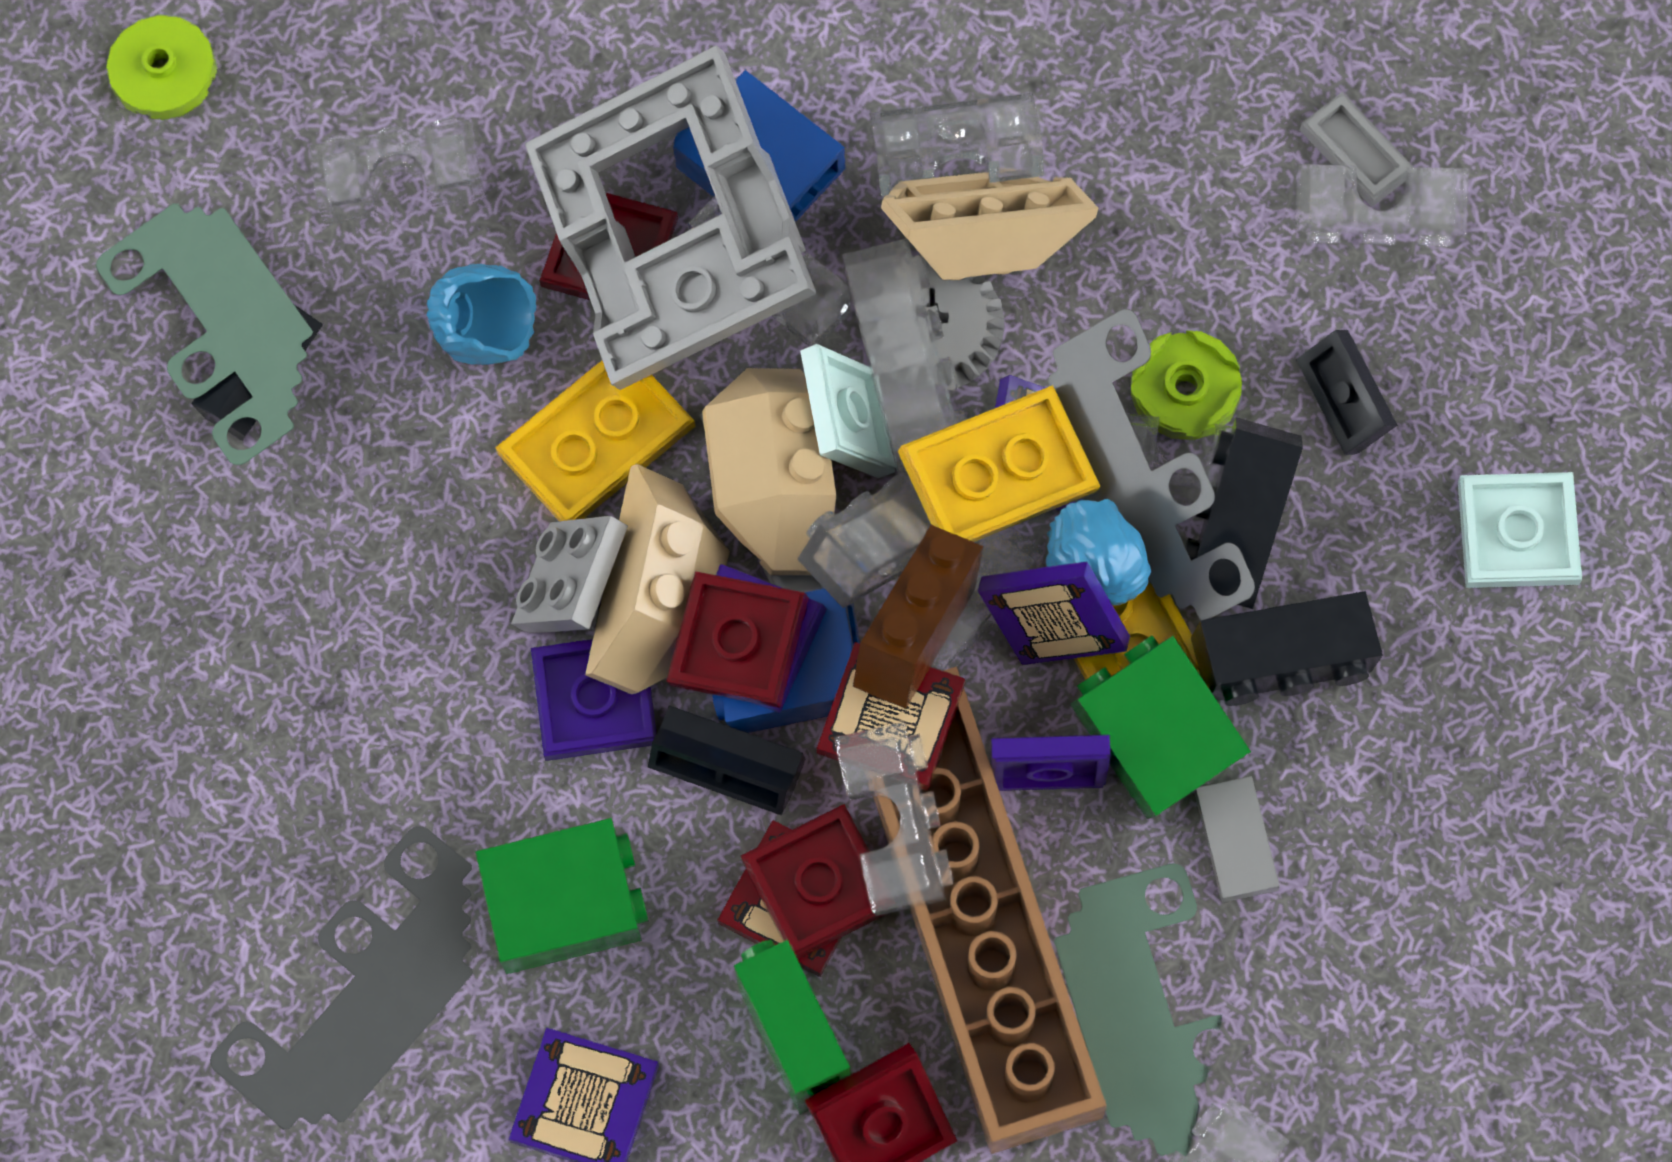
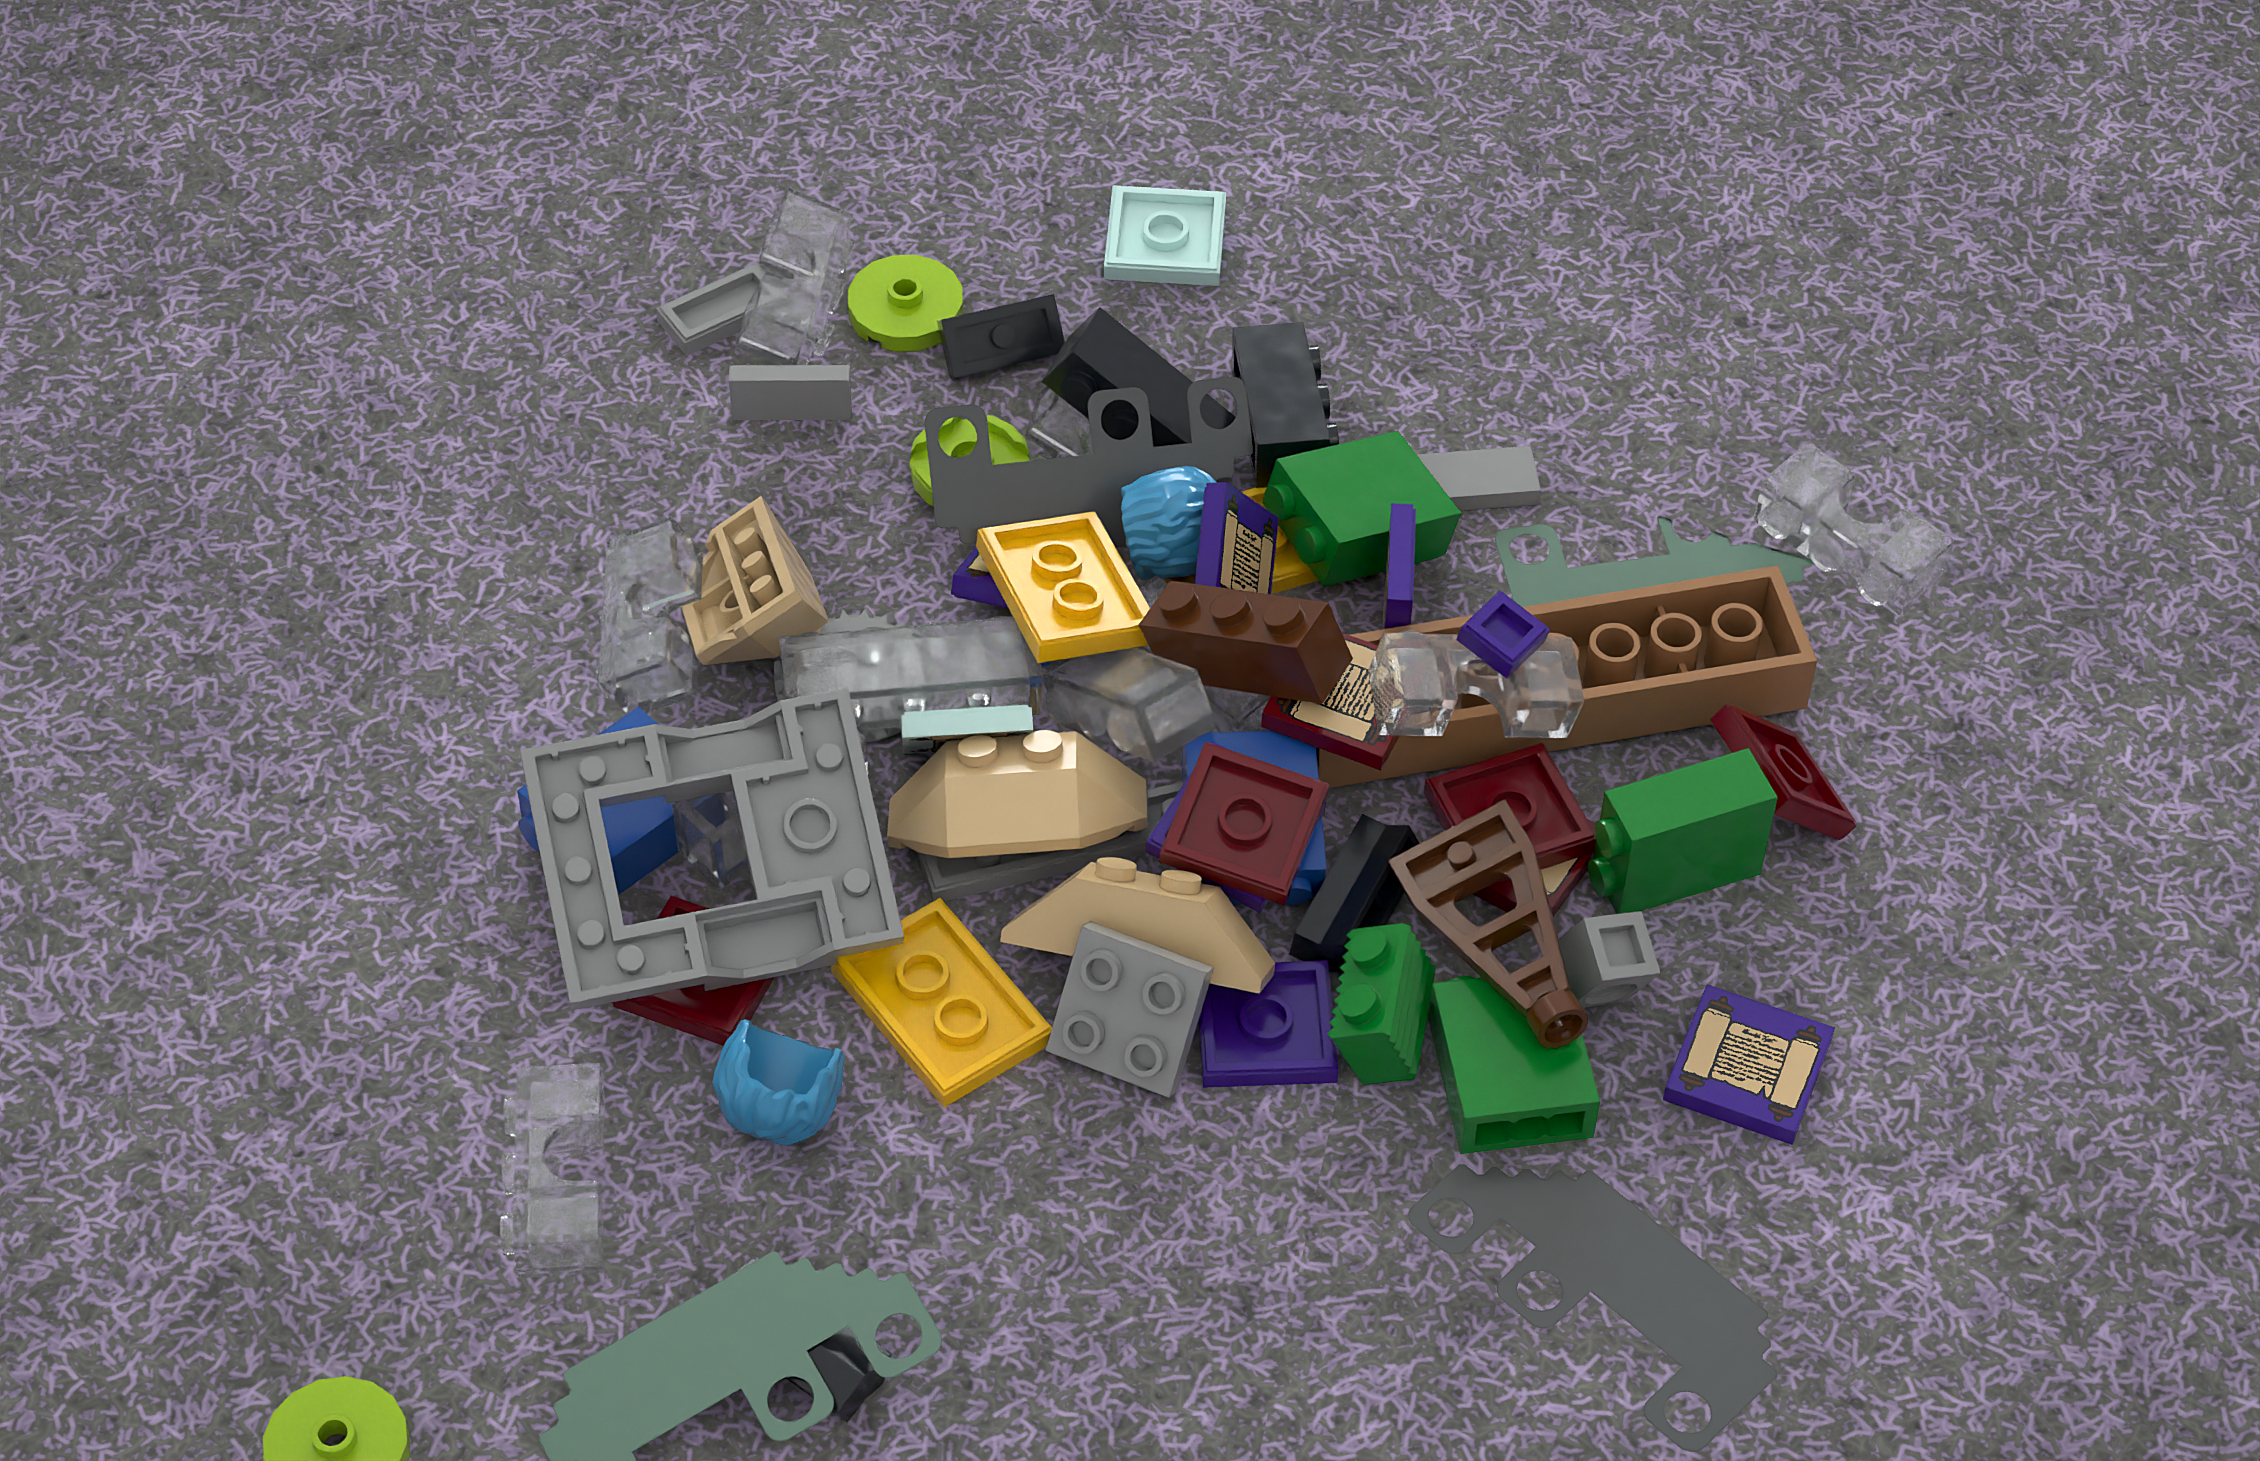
camera: 90 degrees left, 20 degrees down
(597, 780) = (1382, 1003): none -> green brick
(655, 965) = (1608, 958): none -> light grey brick
(734, 831) = (1468, 860): none -> reddish brown plate
(920, 829) = (1503, 634): none -> dark purple tile
(1246, 219) = (790, 392): none -> light grey tile
(1384, 330) = (902, 300): none -> lime plate

